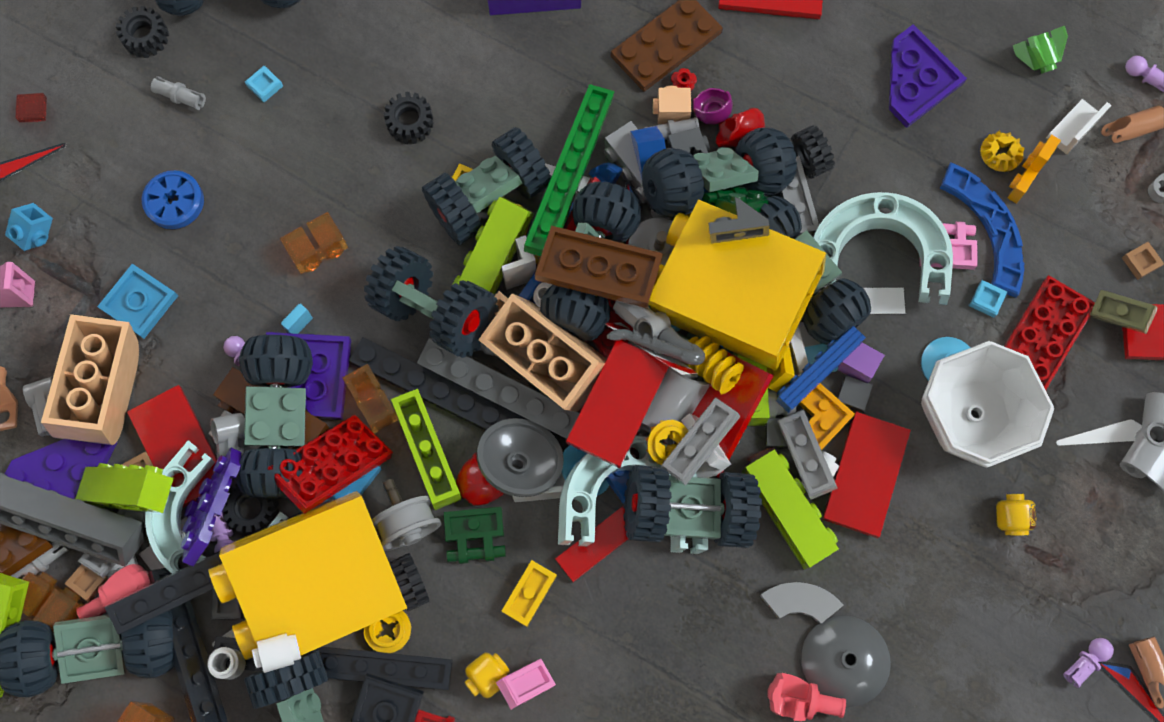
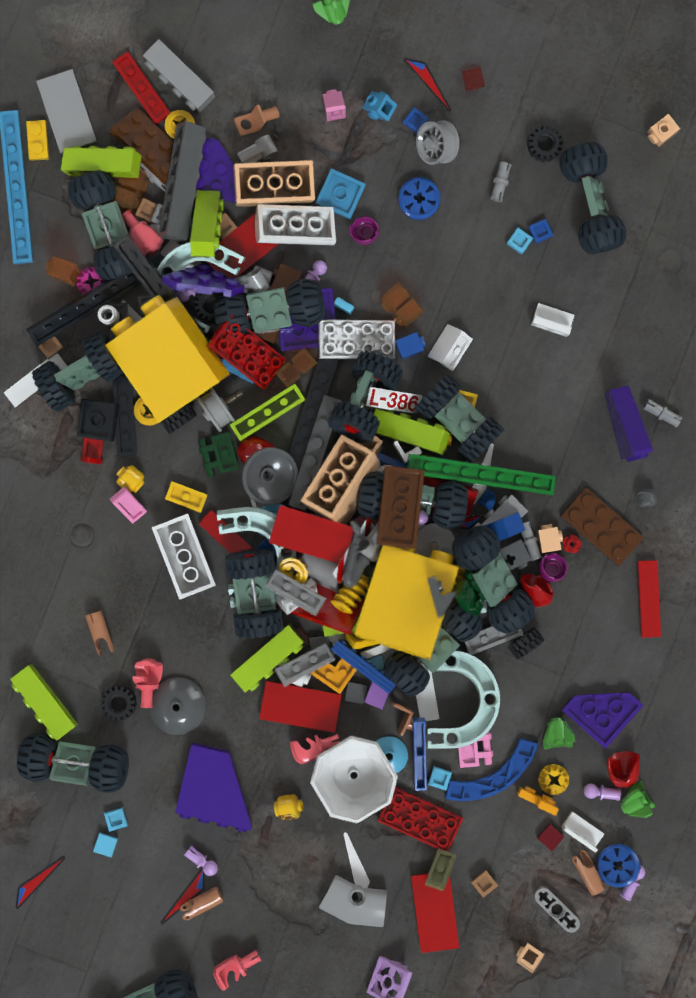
camera: 80 degrees right, 15 degrees up
(65, 188) = (415, 120): none -> blue tile
(99, 156) = (438, 142): none -> light grey wheel
(161, 365) = (295, 225): none -> white brick
(162, 698) = (84, 276): none -> dark pink gear
(197, 275) = (364, 230): none -> magenta hair
(257, 56) = (540, 231): none -> blue tile
(276, 652) = (114, 349): white brick -> none
(343, 317) = (349, 337): none -> white tile
(372, 240) = (410, 345): none -> blue brick
(380, 59) = (553, 320): none -> white panel
(386, 190) = (450, 347): none -> white panel
(405, 104) = (514, 341): black tyre -> none
(443, 268) = (393, 400): none -> white sticker
(619, 608) = (183, 556): none -> white brick
(802, 599) = (212, 673): light grey tile -> none
(905, 326) = (407, 721): none -> nougat bracket
(931, 457) = (305, 756): none -> coral piece
(942, 133) = (558, 734): none -> bright green brick
(953, 315) = (419, 754): none -> blue piece
(980, 626) = (213, 789): none -> dark purple slope
(996, 57) = (623, 768): none -> red hair
(1025, 93) = (592, 791): none -> lavender pin
(1081, 167) = (550, 837): none -> dark red tile
(1145, 86) = (618, 853): none -> blue wheel

